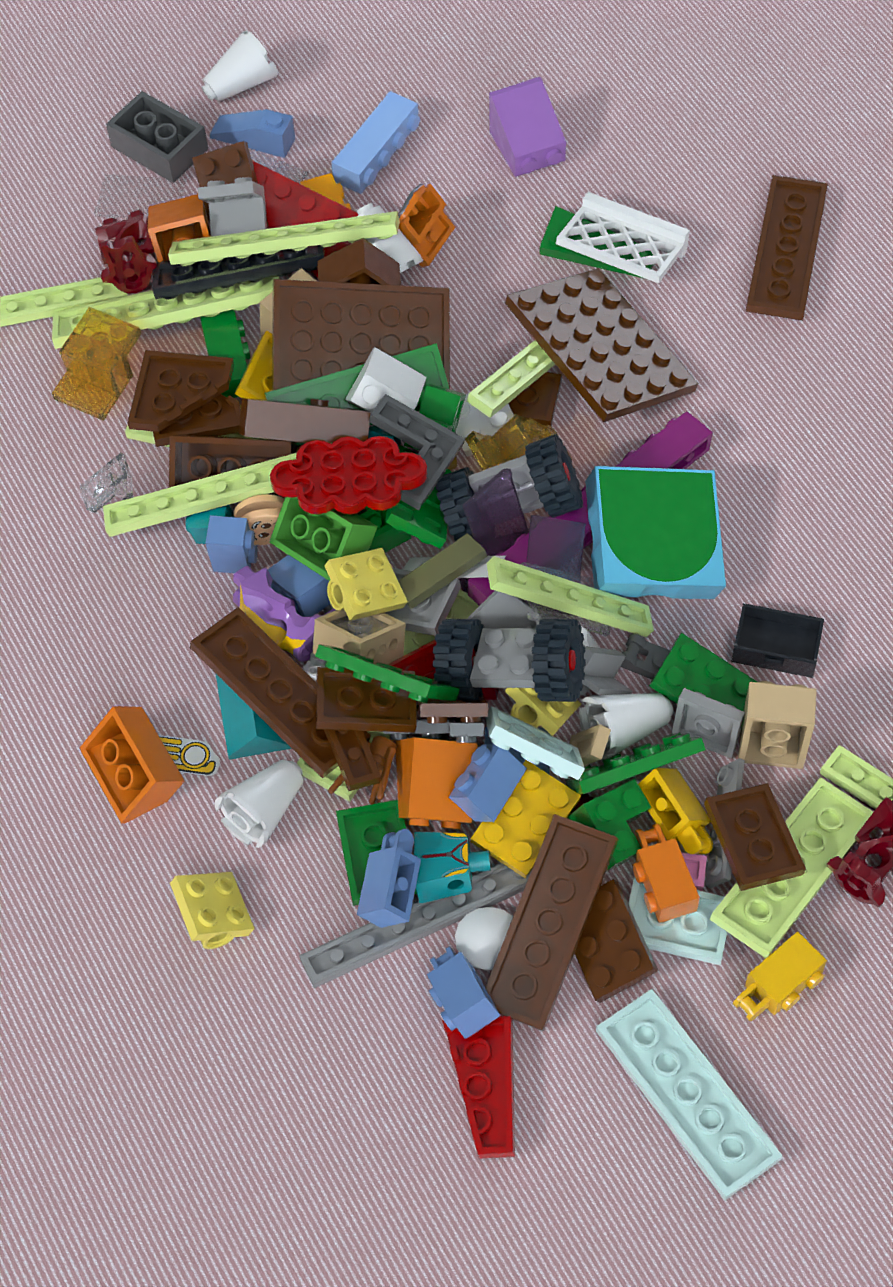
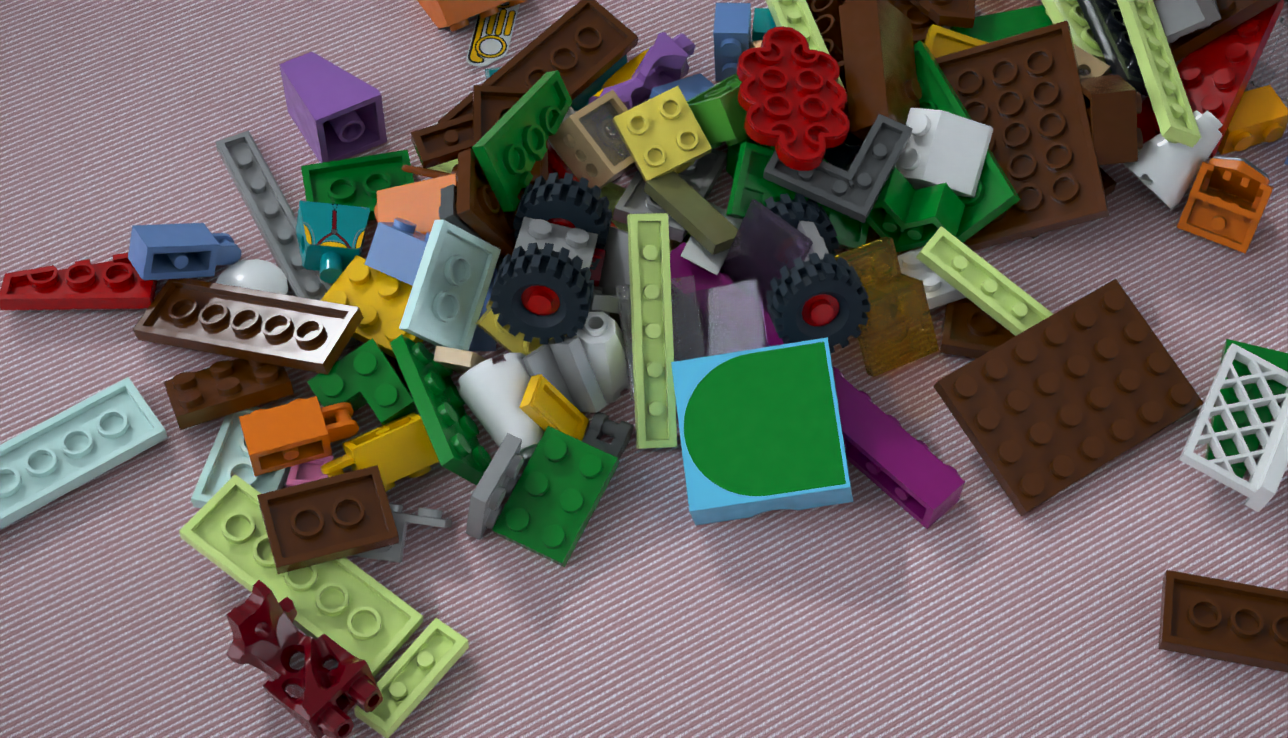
camera: 85 degrees right, 5 degrees down
(212, 908) = (298, 38): light yellow plate -> none
(259, 802) = (416, 81): white cone -> none
(291, 874) = (332, 108): none -> medium lavender slope
(390, 881) = (305, 179): medium blue brick -> none
(632, 682) = (551, 408): none -> yellow tile
(777, 724) = (477, 547): tan brick -> none
(778, 640) = (626, 585): black container -> none
(782, 977) = (164, 562): yellow brick -> none

